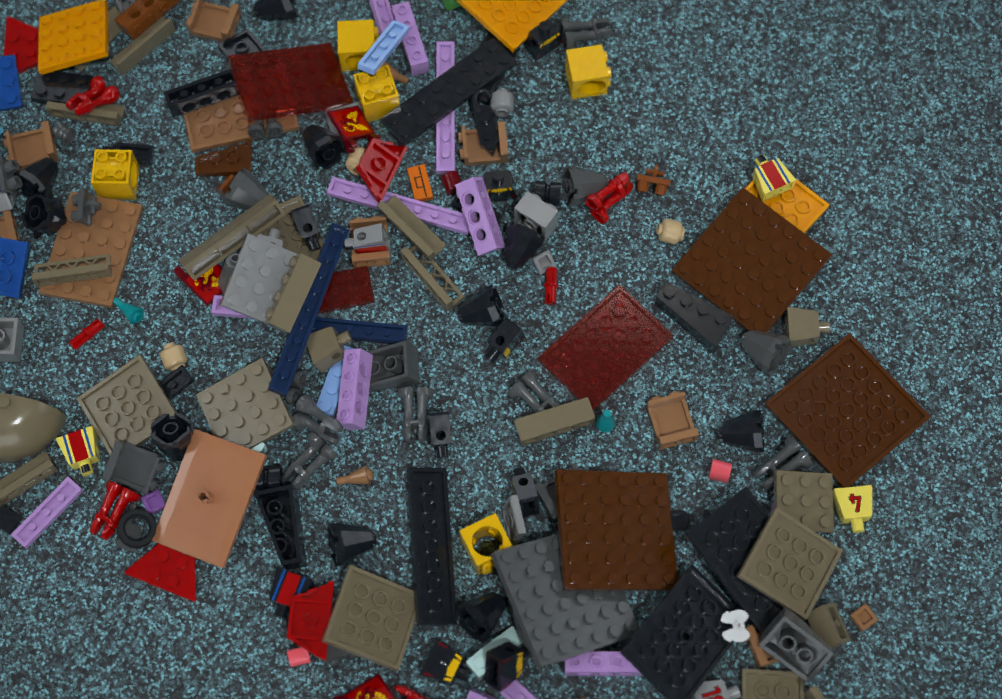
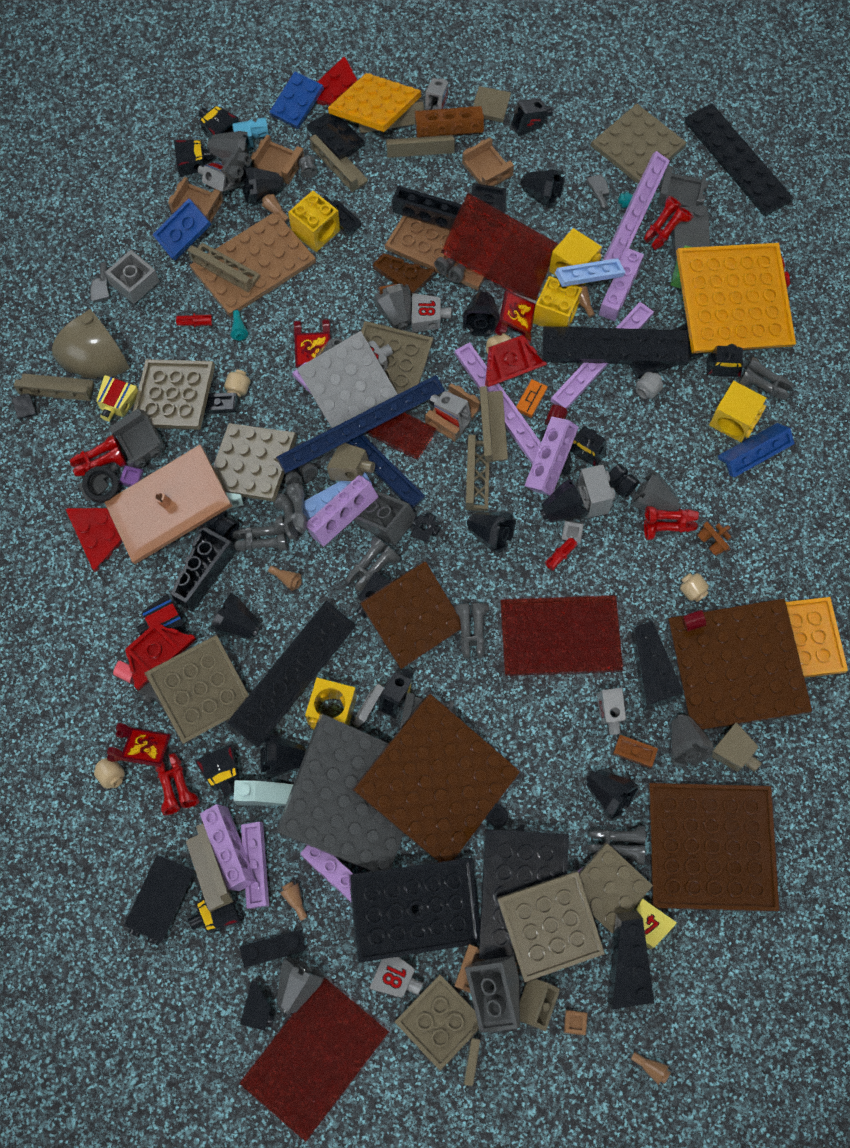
camera: 40 degrees right, 0 degrees up
(43, 214) = (239, 211): black brick -> none
(47, 512) = (54, 423): lavender plate -> none
(63, 187) = (271, 203): none -> medium nougat cone
(86, 206) = (272, 228): dark grey hips -> none
(103, 96) = (352, 157): red piece -> none
(172, 435) = (180, 435): black cone -> none
(231, 237) = (344, 327): dark tan brick -> none
(277, 177) = (427, 312): none -> light grey torso
(292, 293) = (357, 402): dark tan brick -> none
(305, 222) = (413, 362): black torso -> none
(431, 355) = (419, 530): none -> black brick
(475, 155) = (606, 407): medium nougat panel -> none
(483, 424) = (411, 614): none -> reddish brown plate
(485, 123) = (621, 390): black plate -> none
(504, 665) = (259, 807): black torso -> none
(507, 333) = (486, 565): black torso -> none
(554, 421) = (468, 658): dark tan panel -> none
(605, 422) = (508, 692): teal cone -> none
(623, 89) = (757, 449): none -> blue panel
(671, 420) = (561, 734): medium nougat panel -> none
(692, 371) = (611, 700): none -> light grey torso
(694, 256) = (694, 620): none -> dark red brick
(720, 471) = (564, 805): coral brick -> none
(734, 388) = (635, 751): none -> dark orange plate
(738, 633) = (468, 932): white piece -> none
(771, 178) = (816, 610): torso -> none
(867, 541) = (630, 968): none -> black wedge
(947, 600) = (656, 1070): none -> medium nougat cone

